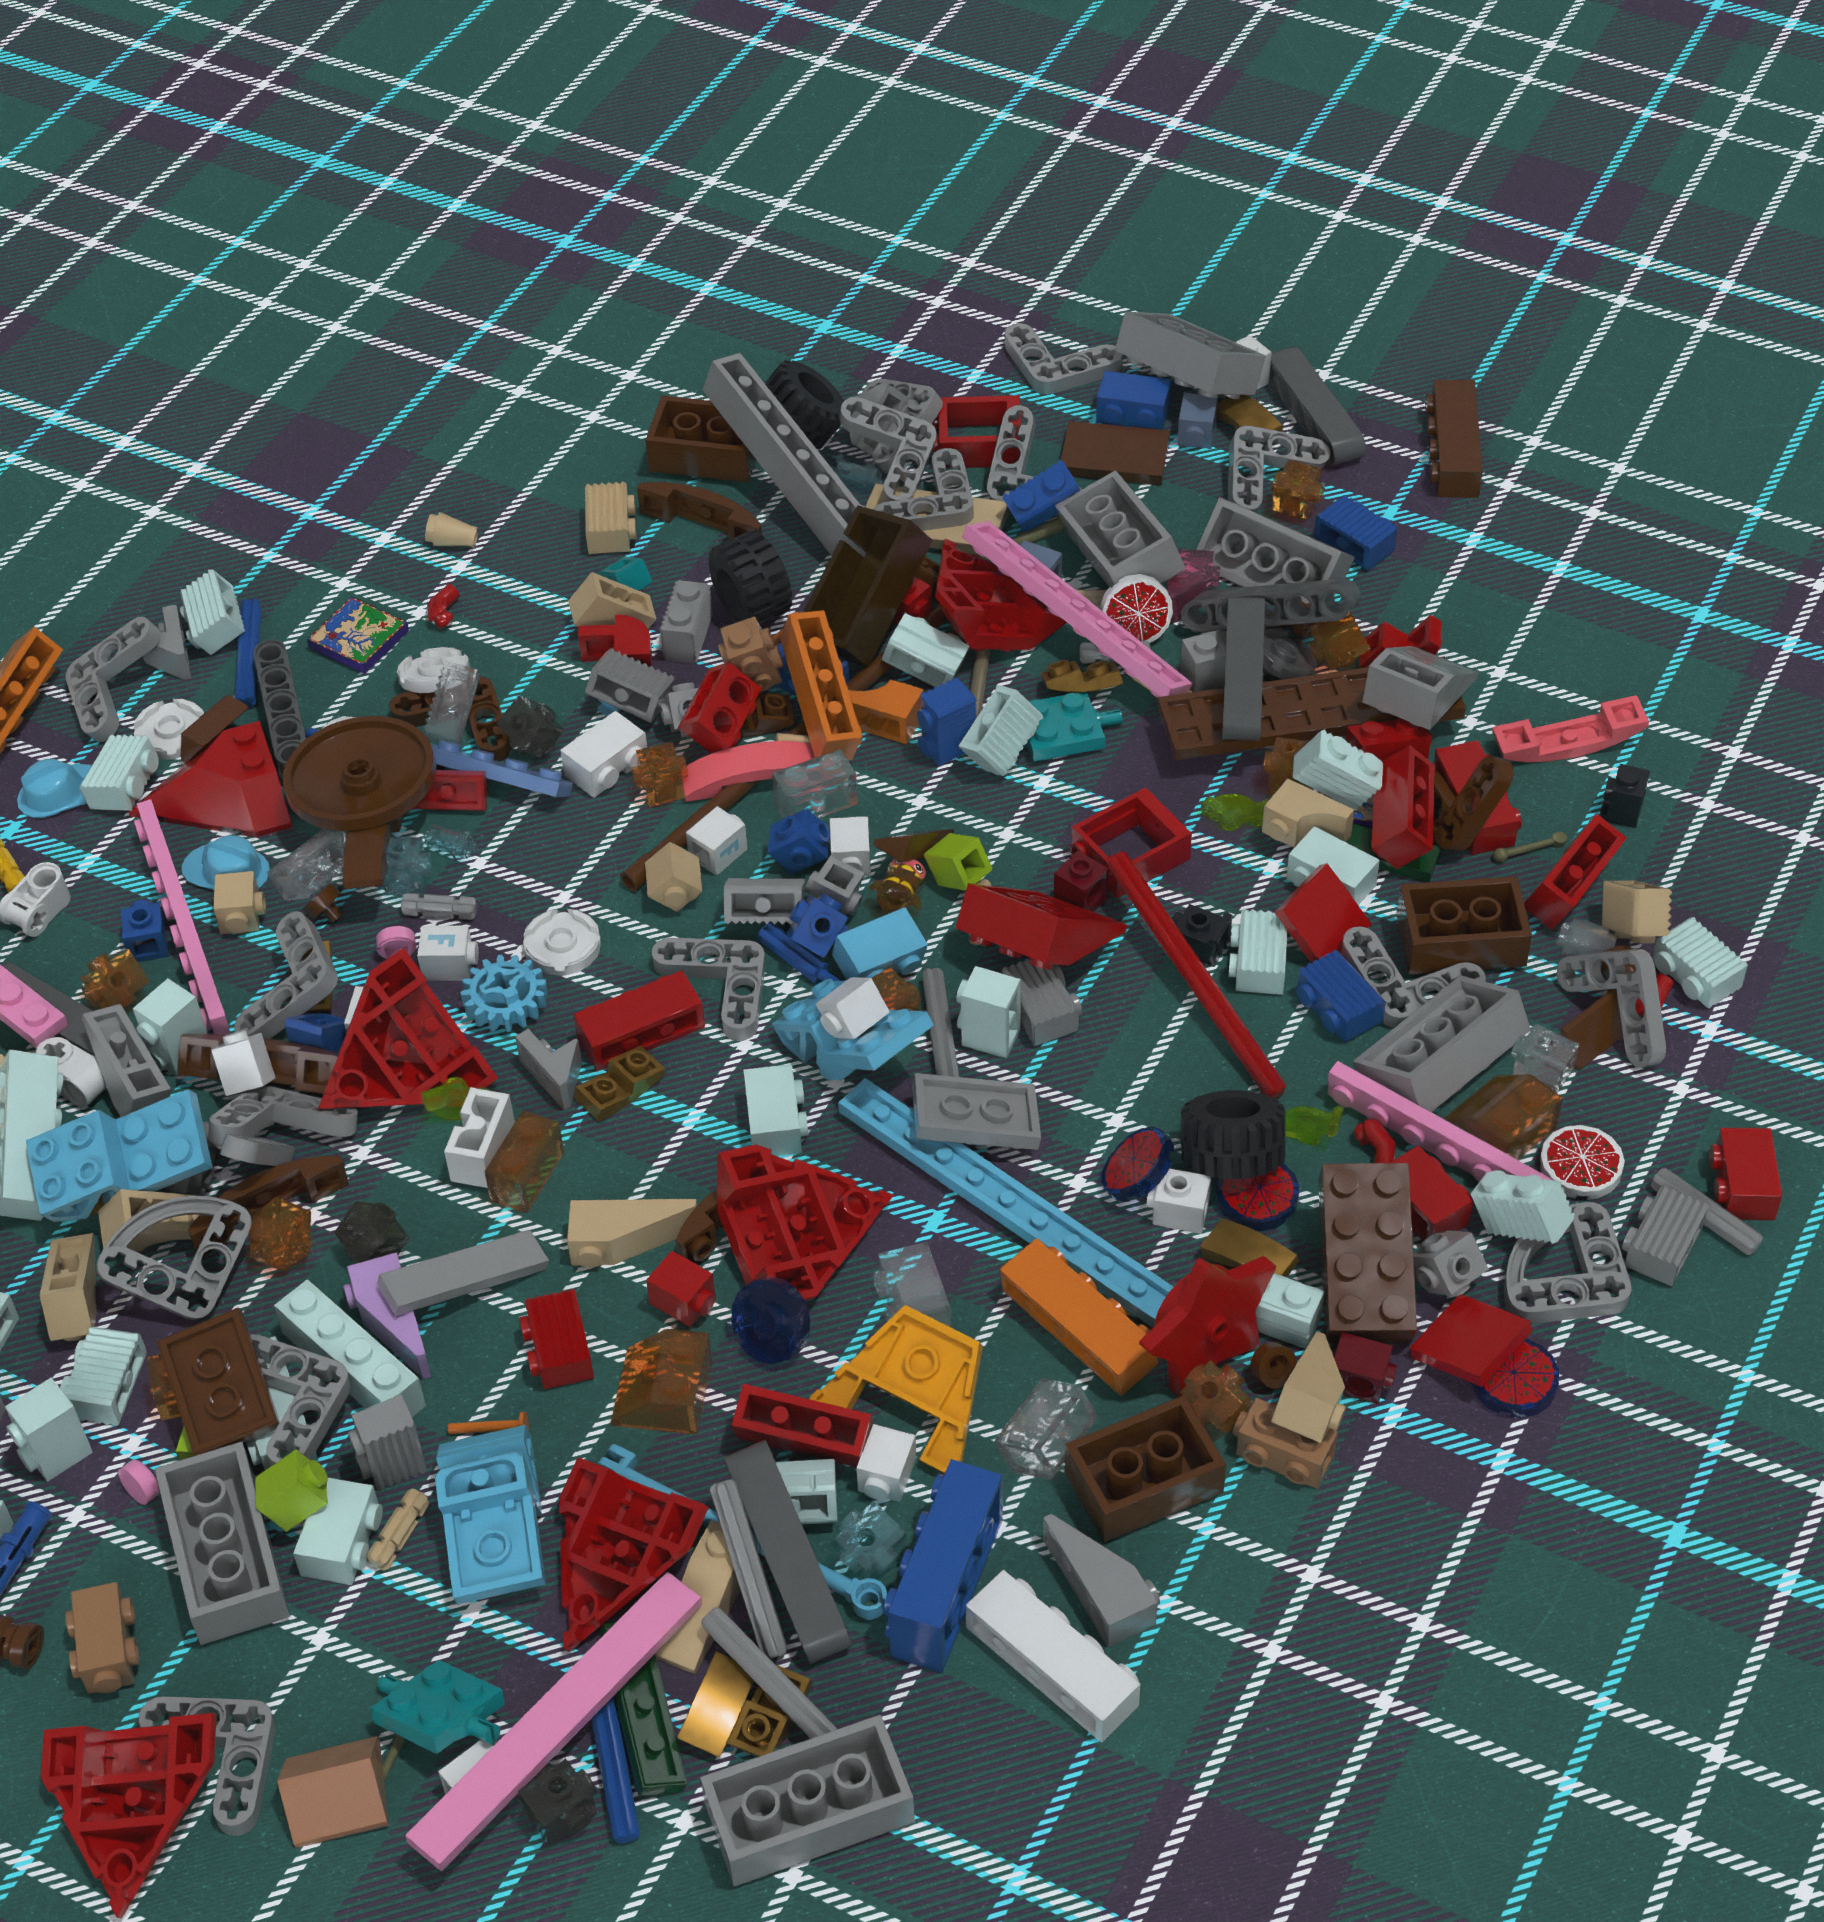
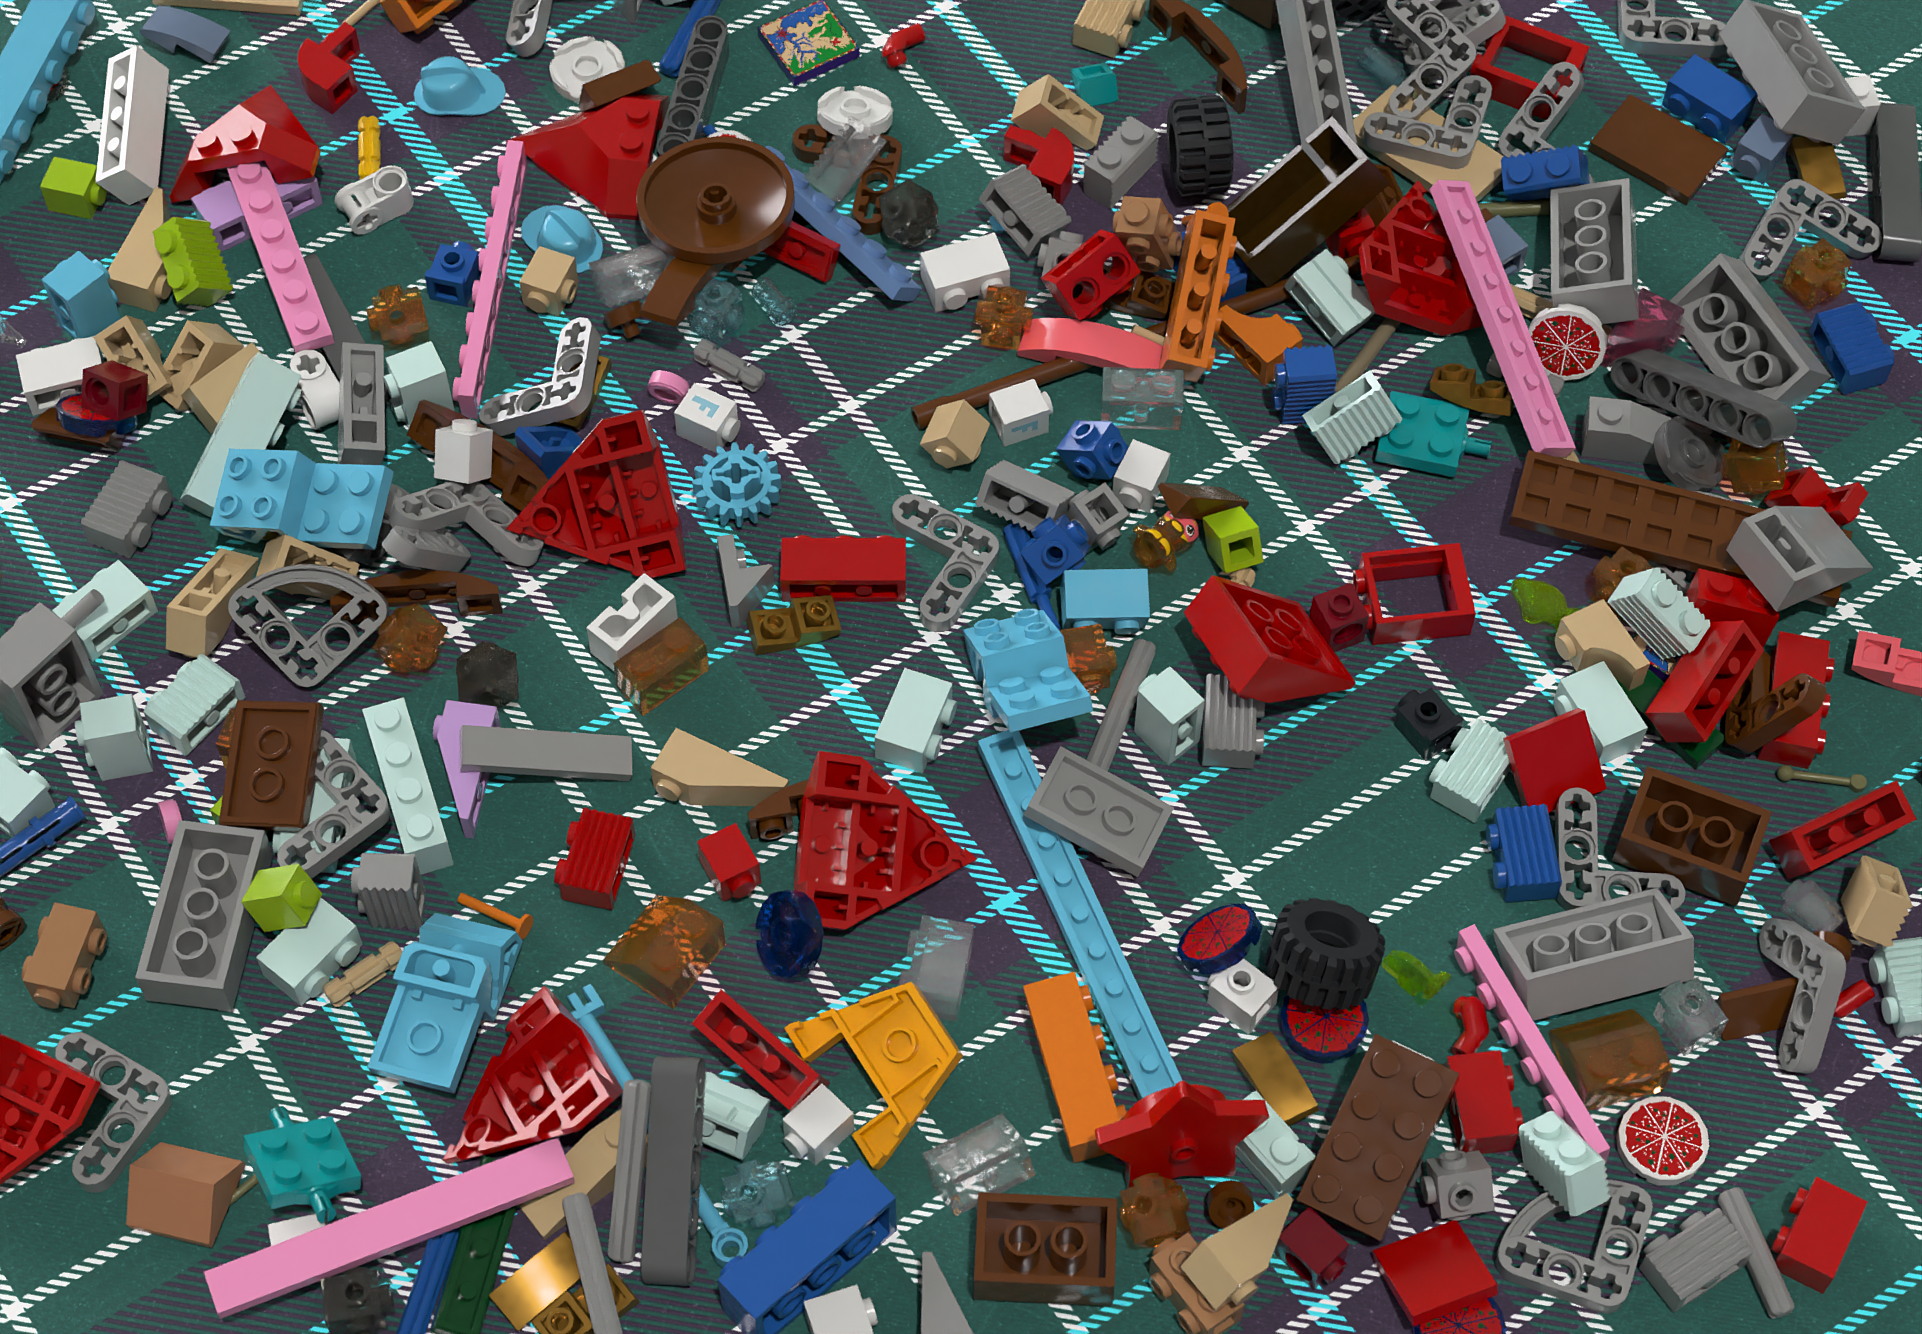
camera: 25 degrees right, 10 degrees up
(119, 773) = (513, 99): light aqua brick -> none
(447, 1099) = (627, 569): clear neon green piece -> none
(562, 942) = (821, 453): white tile -> none
(852, 1008) = (1027, 657): white brick -> none
(1196, 976) = (1392, 768): red axle -> none
(1244, 669) = (1628, 459): dark grey beam -> none

